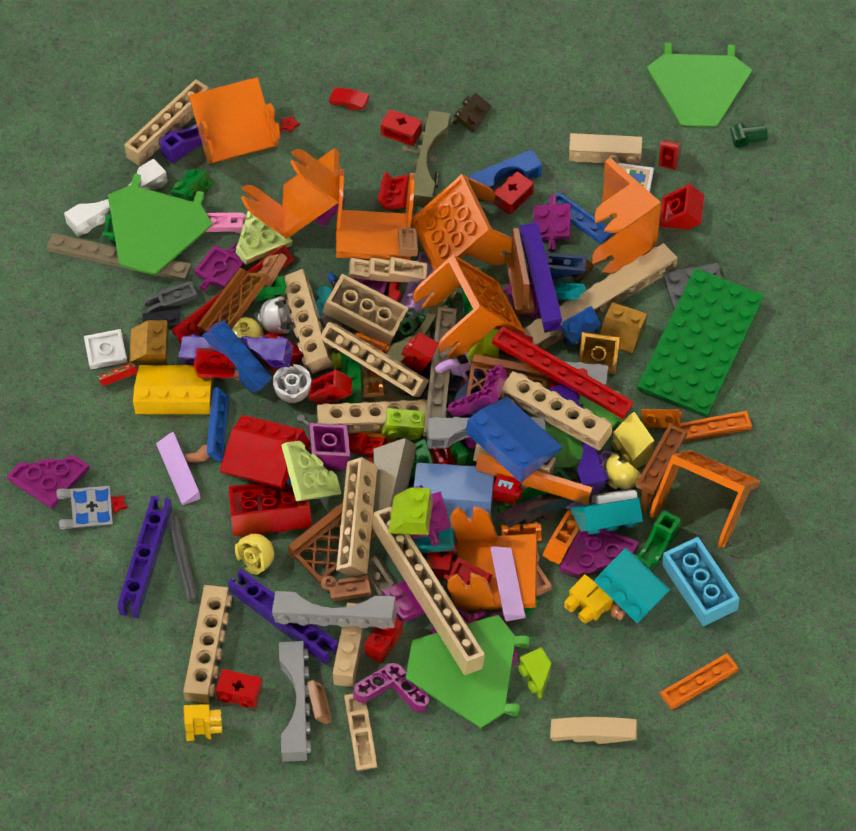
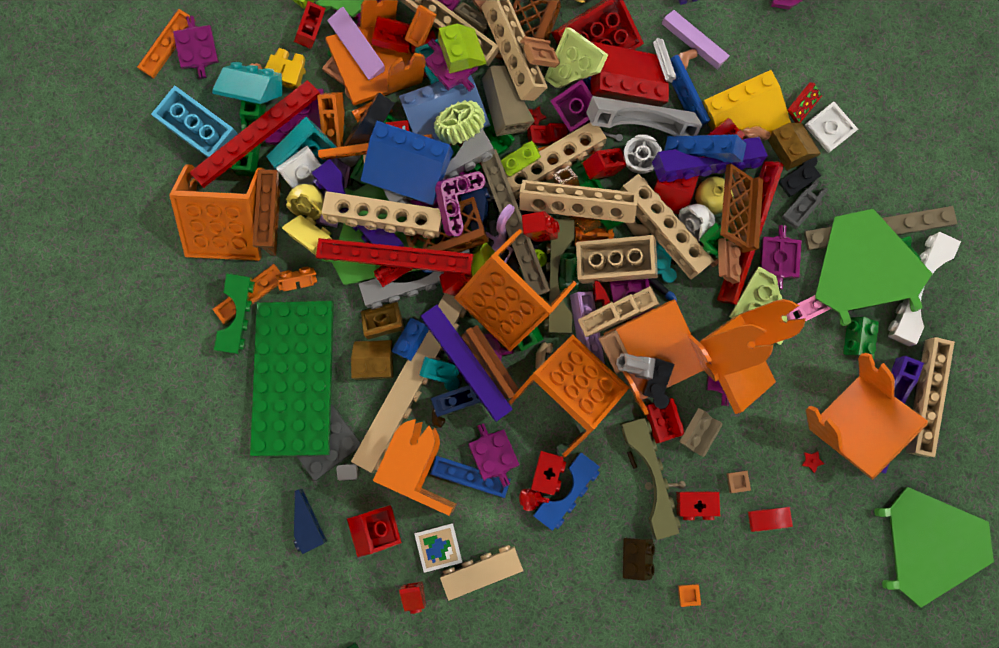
camera: 155 degrees right, 25 degrees up
(178, 361) = (756, 132): none -> nougat arm
(221, 455) = (664, 60): none -> axle
(231, 38) = (934, 545): none -> bright green flag
(306, 408) = (613, 112): none -> light grey arch
(337, 493) = (539, 52): none -> nougat plate
(358, 130) = (738, 481): none -> medium nougat plate
(368, 170) = (701, 433): none -> dark tan bracket
(383, 213) = (656, 387): none -> black hinge
(395, 220) = (640, 366): none -> light grey piece
(438, 561) = (420, 26): none -> orange tile
(444, 76) = (689, 595): none -> orange plate
(446, 463) = (459, 122): none -> yellowish green gear
(540, 179) = (530, 499): none -> red piece
(545, 626) = (309, 25): none -> red brick
(643, 539) = (254, 134): none -> red plate
(669, 660) = (196, 47): none -> magenta plate
(685, 254) = (347, 472): none -> light grey slope
(739, 228) = (306, 526): none -> dark blue slope
(742, 393) = (239, 290): none -> green arch

